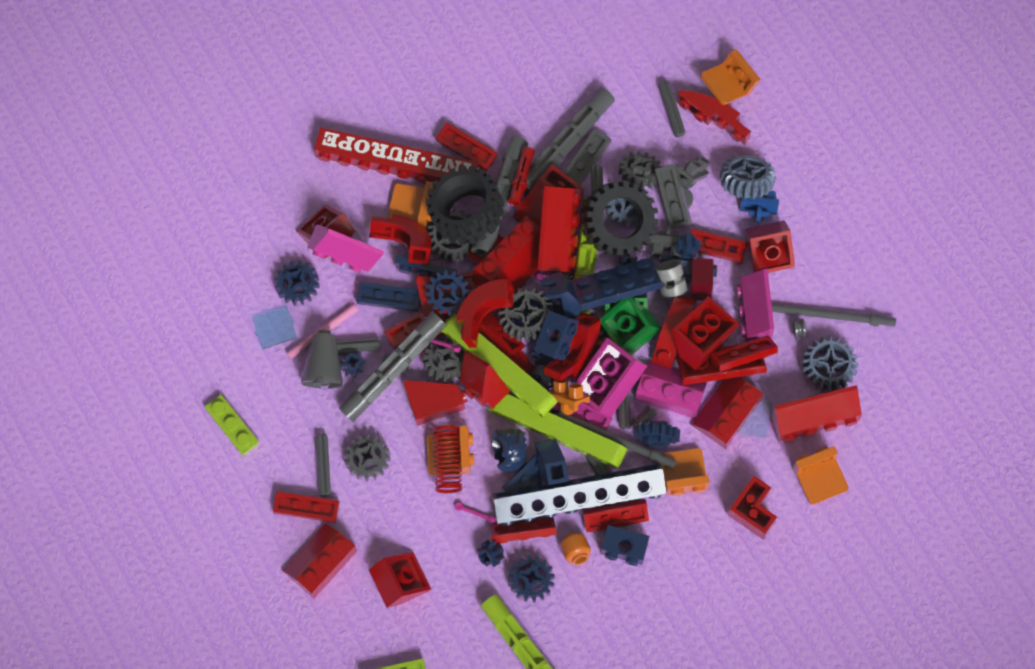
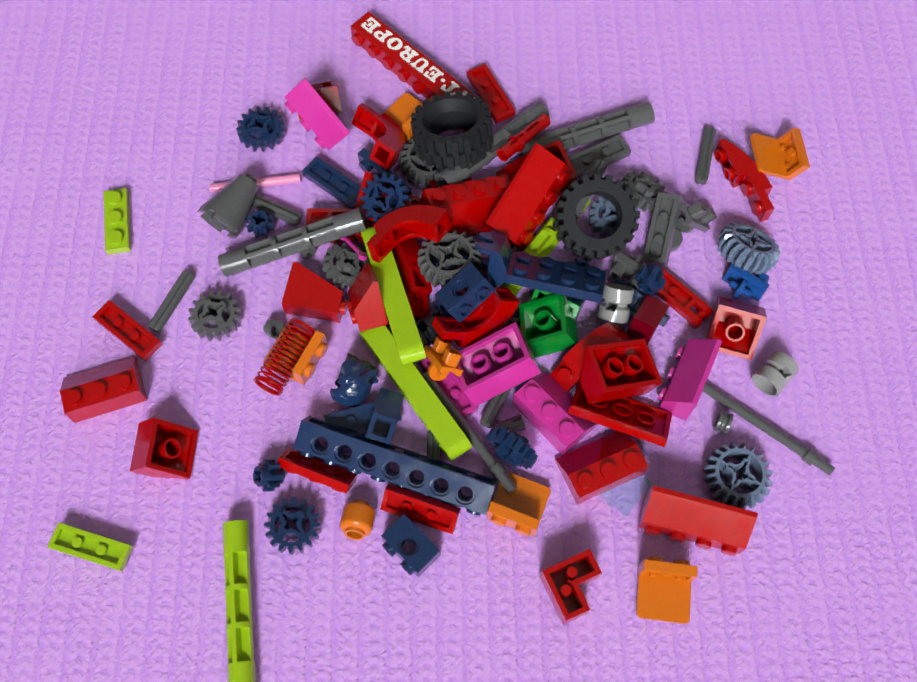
camera: 25 degrees right, 5 degrees down
(274, 327) = (216, 158): clear light blue piece -> none
(419, 442) = (279, 325): none -> dark grey hinge
(459, 507) = (272, 412): dark pink hinge -> none
(744, 353) = (650, 414): red plate -> none
(818, 269) = (775, 373): none -> light grey wheel

